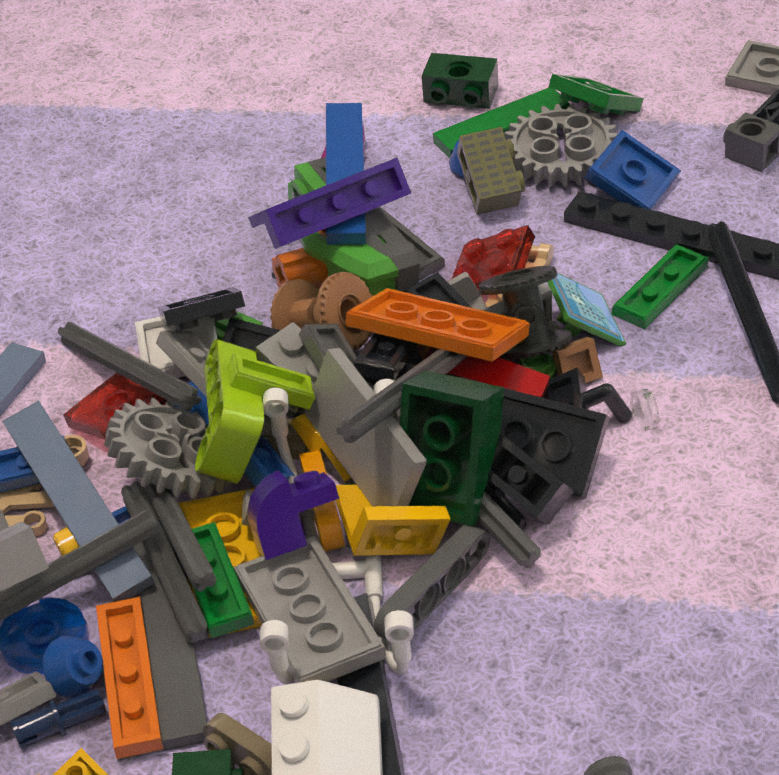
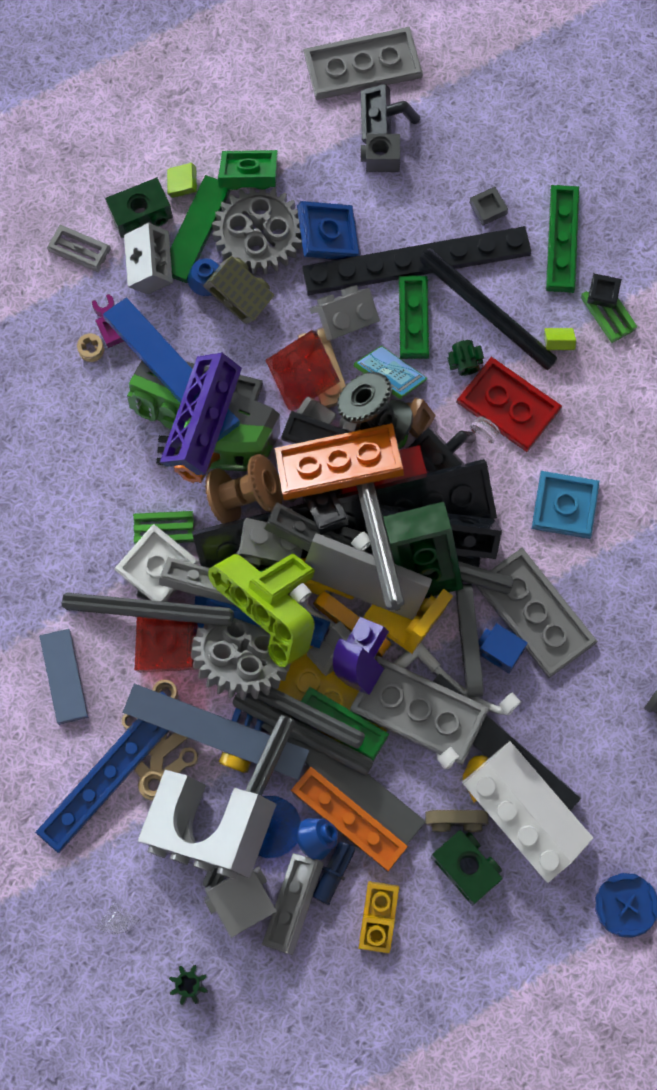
camera: 40 degrees left, 30 degrees up
(217, 305) = (167, 539): black plate -> none
(303, 154) = (95, 340): none -> tan bush
(380, 102) = (99, 258): none -> light grey tile
(426, 114) = (148, 258): none -> light grey brick
(465, 615) = (501, 647): none -> blue brick
(524, 81) = (181, 180): none -> lime tile
(544, 618) = (539, 615): none -> light grey tile
(585, 239) = (346, 313): none -> light grey bracket
(679, 530) = (565, 504): none -> dark azure tile
(682, 337) = (465, 357): none -> dark green gear
(700, 409) = (509, 403): none -> red tile

